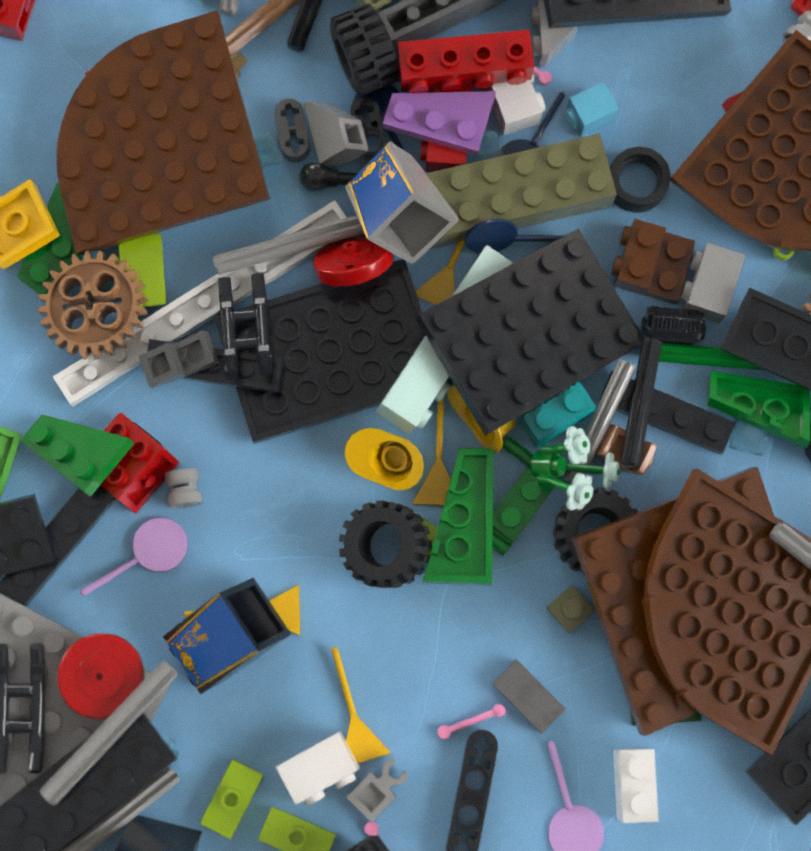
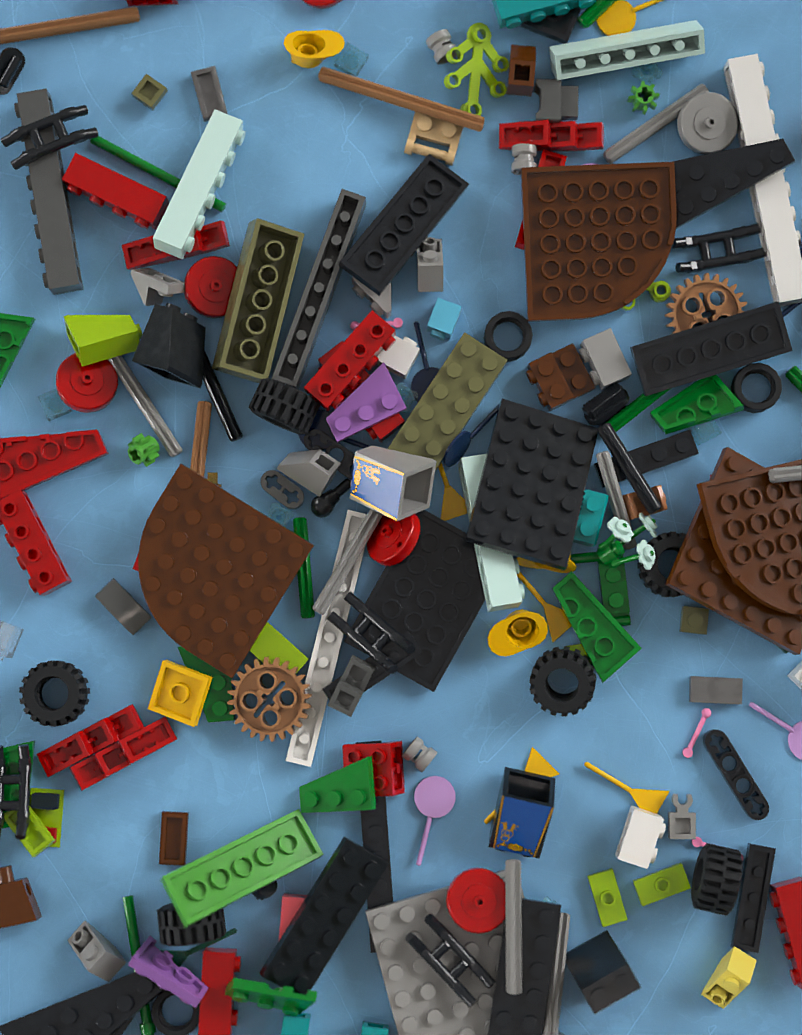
camera: 40 degrees left, 5 degrees up
(43, 101) = (123, 606): none -> dark grey slope
(241, 221) = (304, 574): none -> green axle
(624, 50) = (430, 266): none -> light grey slope

